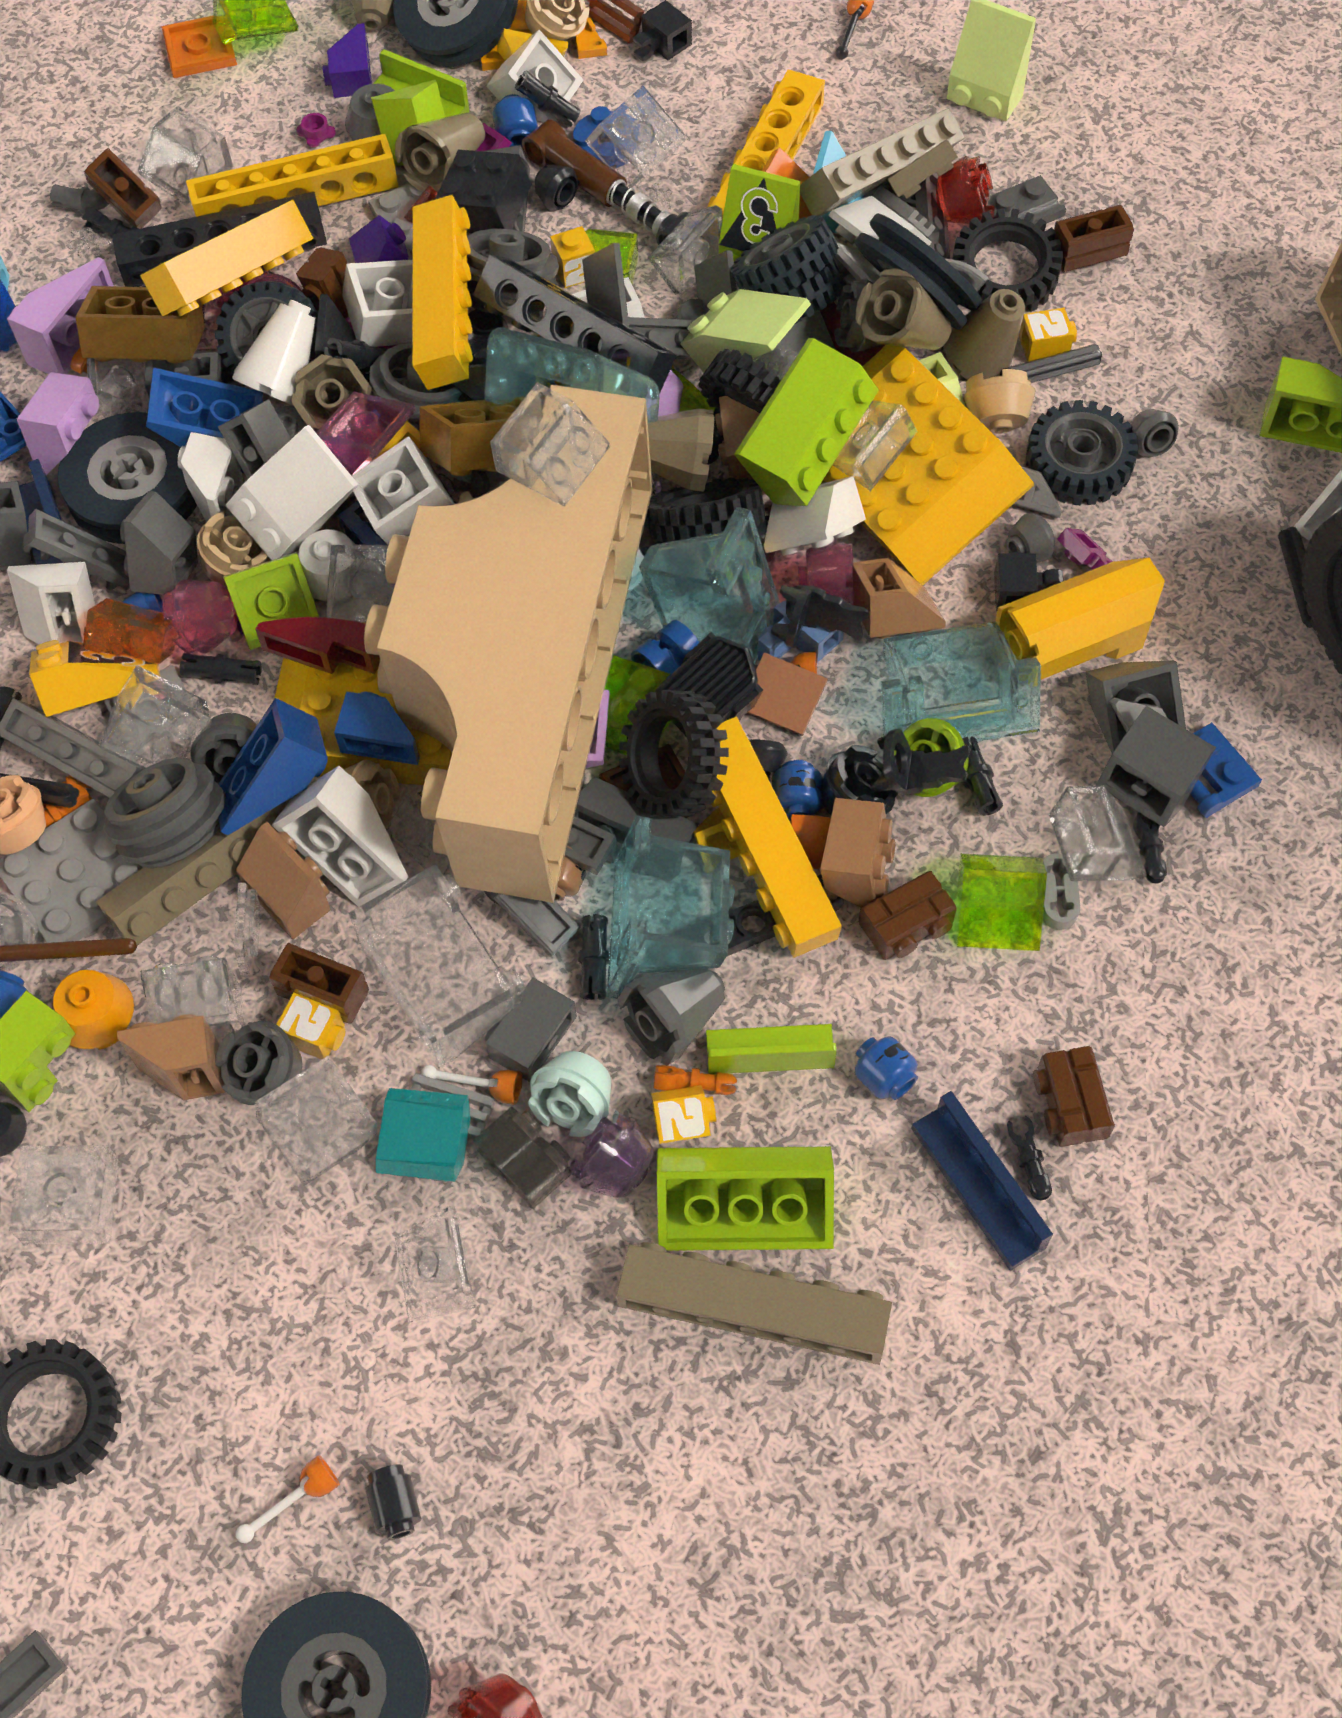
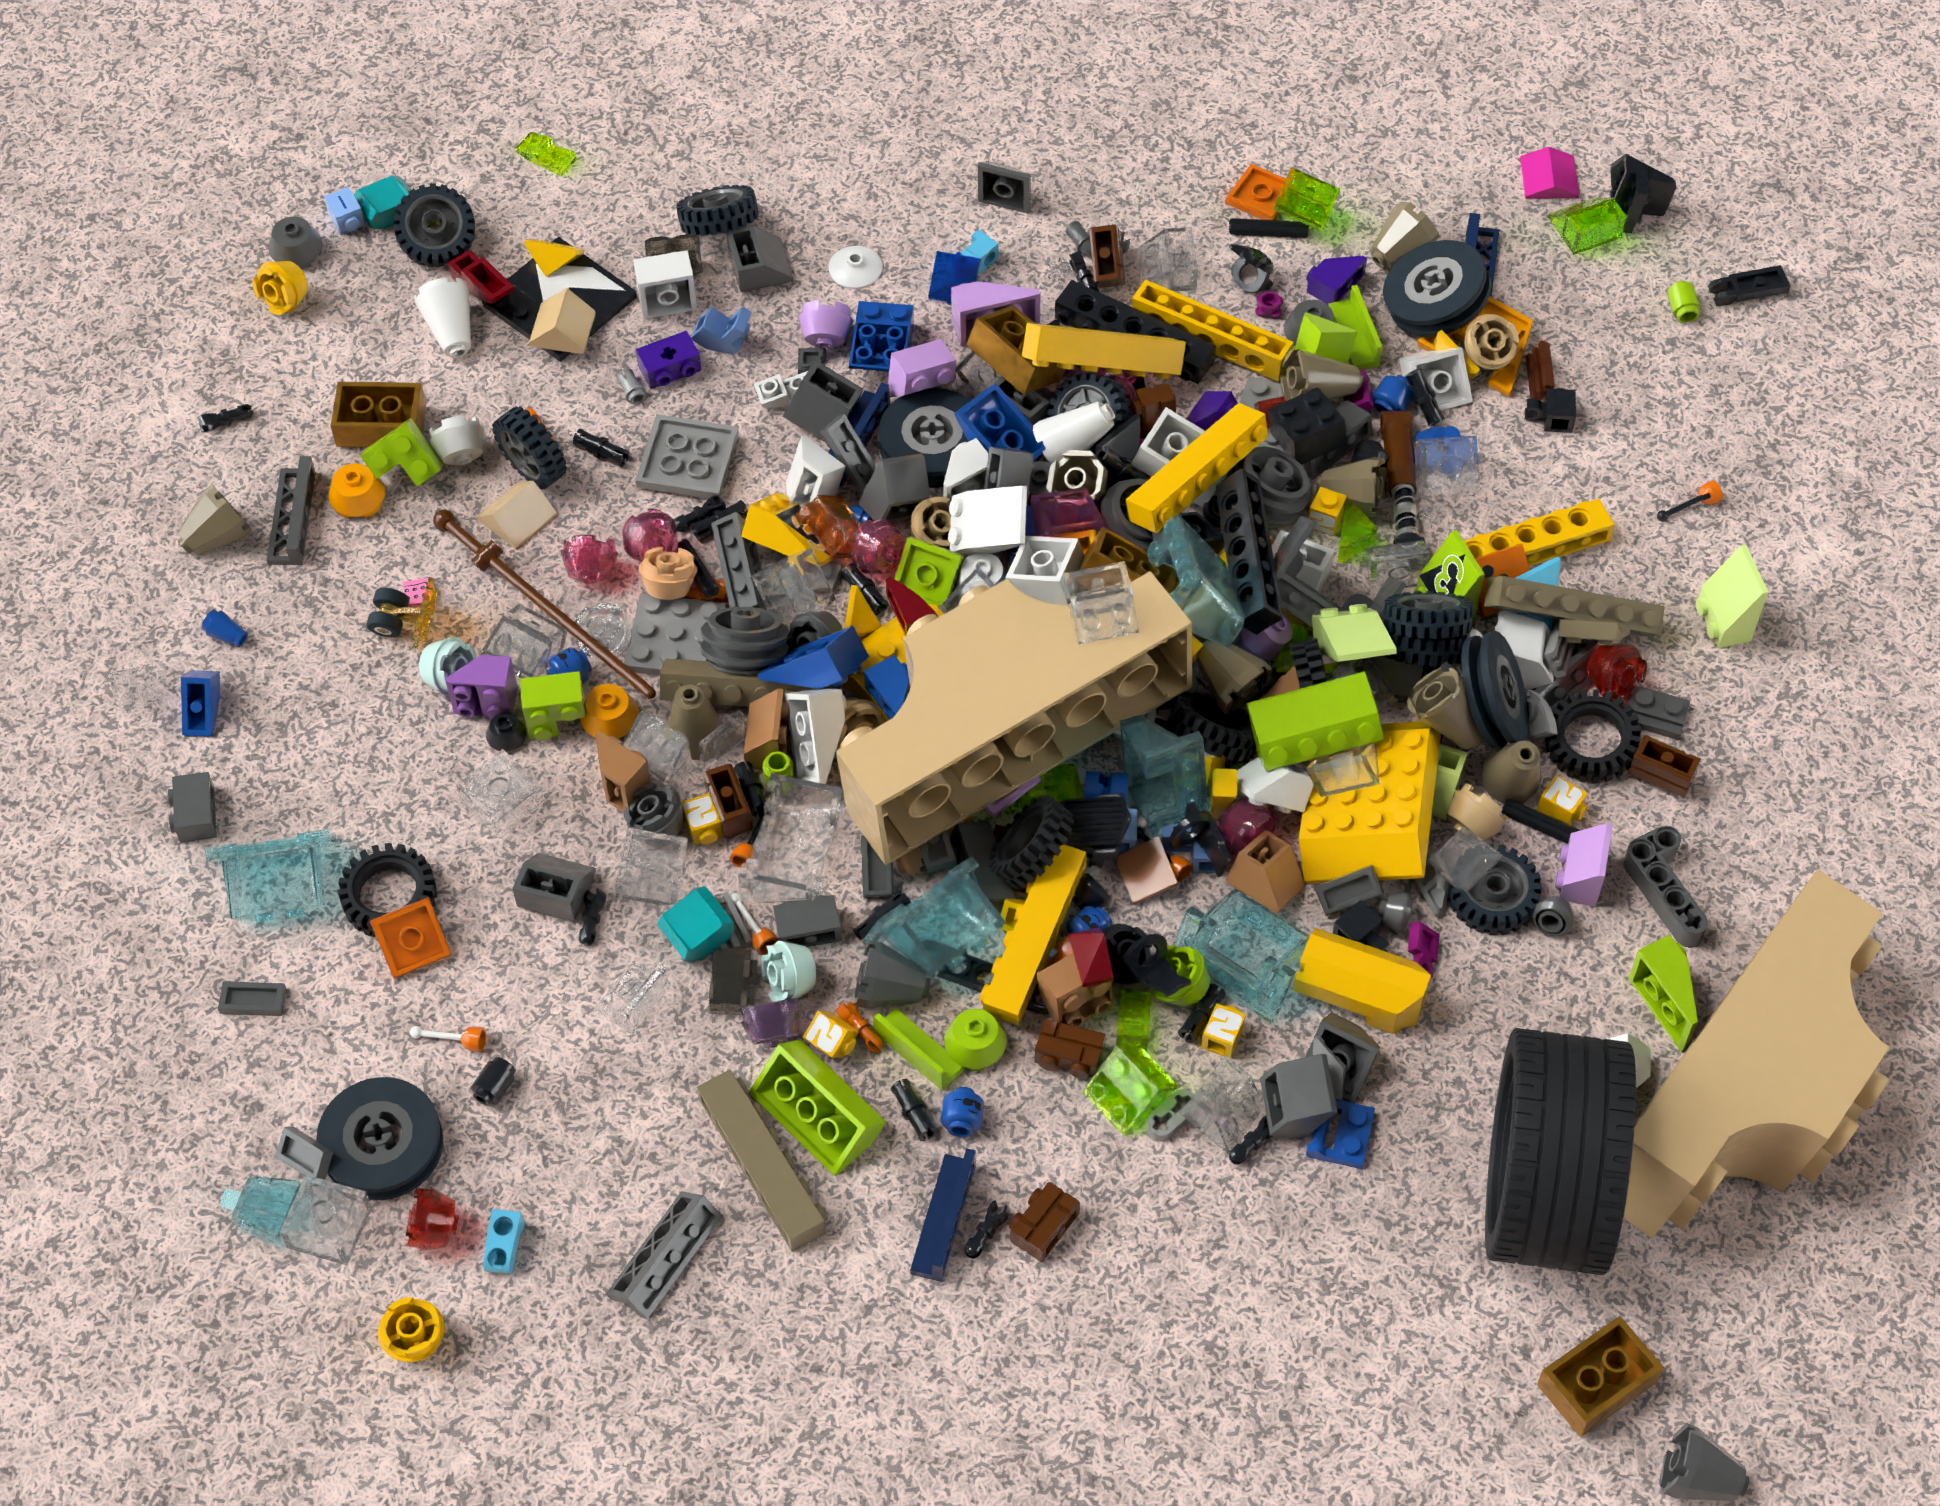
camera: 45 degrees right, 5 degrees down
(131, 1439) = (410, 937): none -> orange tile
(194, 931) = (693, 716): none -> dark tan cone
(228, 1236) = (552, 886): none -> dark grey slope
(239, 68) = (1268, 228): none -> black axle
(243, 695) = (860, 614): none -> yellow slope
(263, 92) = (1259, 260): none -> black hair
(302, 1230) = (591, 917): none -> black piece
(329, 948) = (751, 788): none -> black pin
(333, 908) = (777, 763): none -> lime brick
(390, 1021) = (743, 851): none -> orange hinge
(575, 206) = (1360, 481): none -> dark tan cone
(595, 1662) = (503, 1241): none -> medium azure leg
(774, 1492) = (666, 1253): none -> dark grey fence
(783, 557) = (1222, 790): none -> yellow slope
(814, 989) = (975, 1039): none -> lime cone
(835, 1110) = (914, 1109): none -> black pin
(855, 803) = (1091, 956): none -> dark red slope
(932, 839) = (1133, 1018): none -> clear neon green slope
(975, 554) = (1348, 890): none -> dark grey tile
(1017, 772) = (1223, 1030): none -> brick
(1043, 443) = (1464, 859): none -> clear piece
(1133, 365) = (1584, 865): none -> lavender slope
(1204, 336) = (1684, 922): none -> dark grey beam

